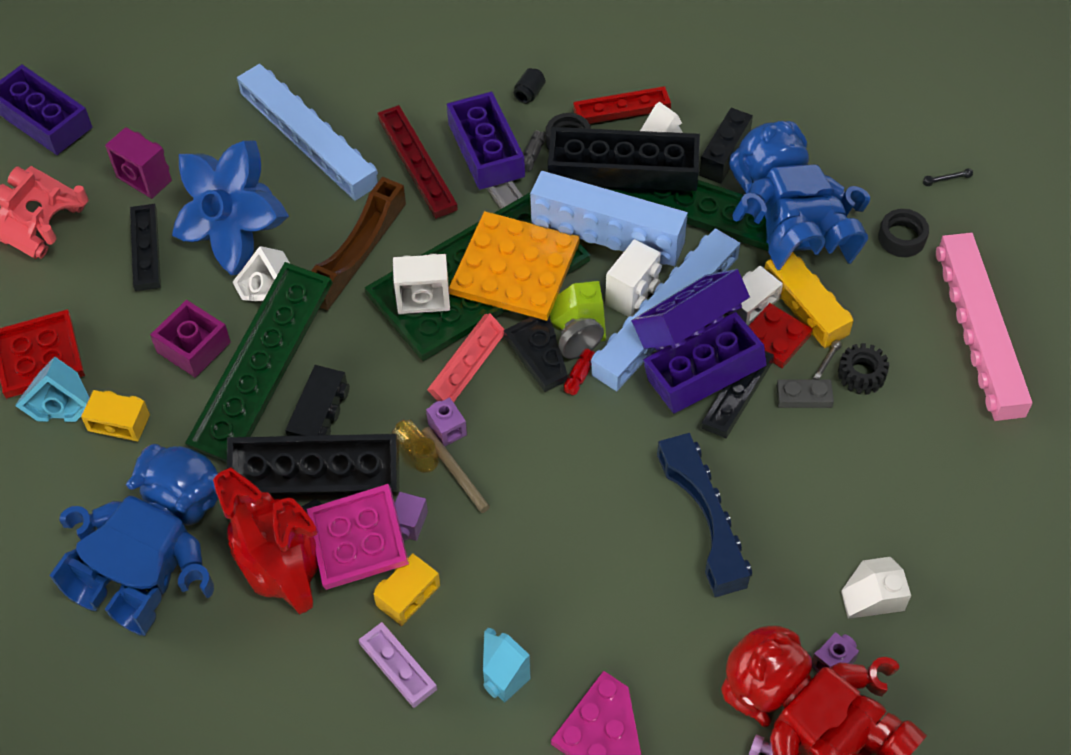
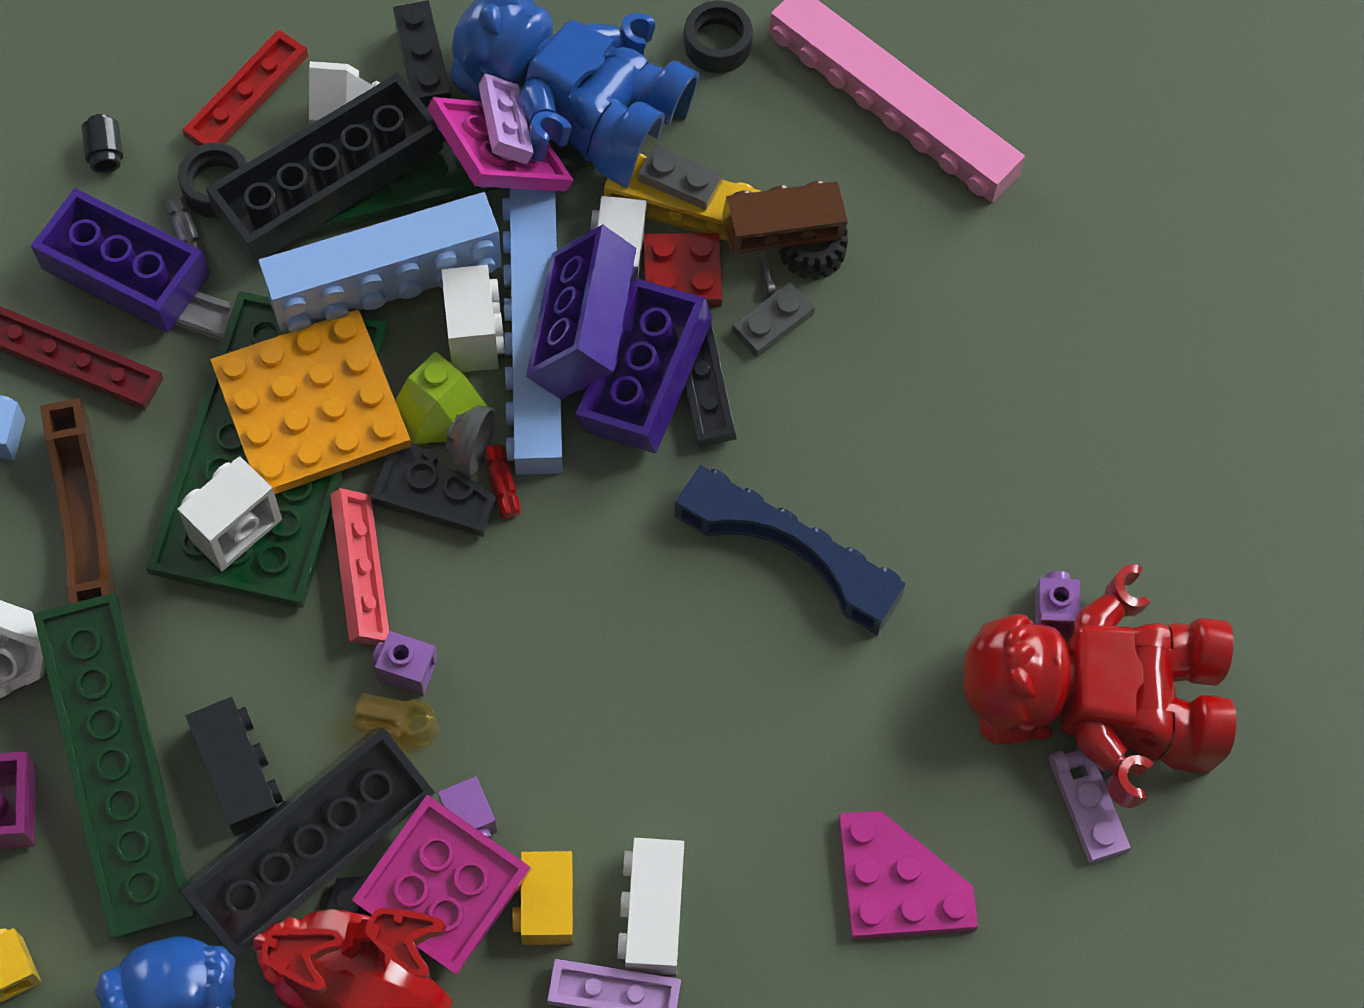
camera: 45 degrees left, 10 degrees up
(456, 637) = (652, 906): none -> white brick
(457, 472) = (470, 713): dark tan bar -> none
(504, 665) = (732, 896): medium azure slope -> none
(715, 196) = (467, 134): none -> dark pink plate
(733, 188) = (505, 119): none -> lavender plate
(812, 283) = (680, 177): none -> dark grey plate
(852, 338) = (784, 216): none -> reddish brown brick
(876, 589) = (1033, 492): white slope -> none

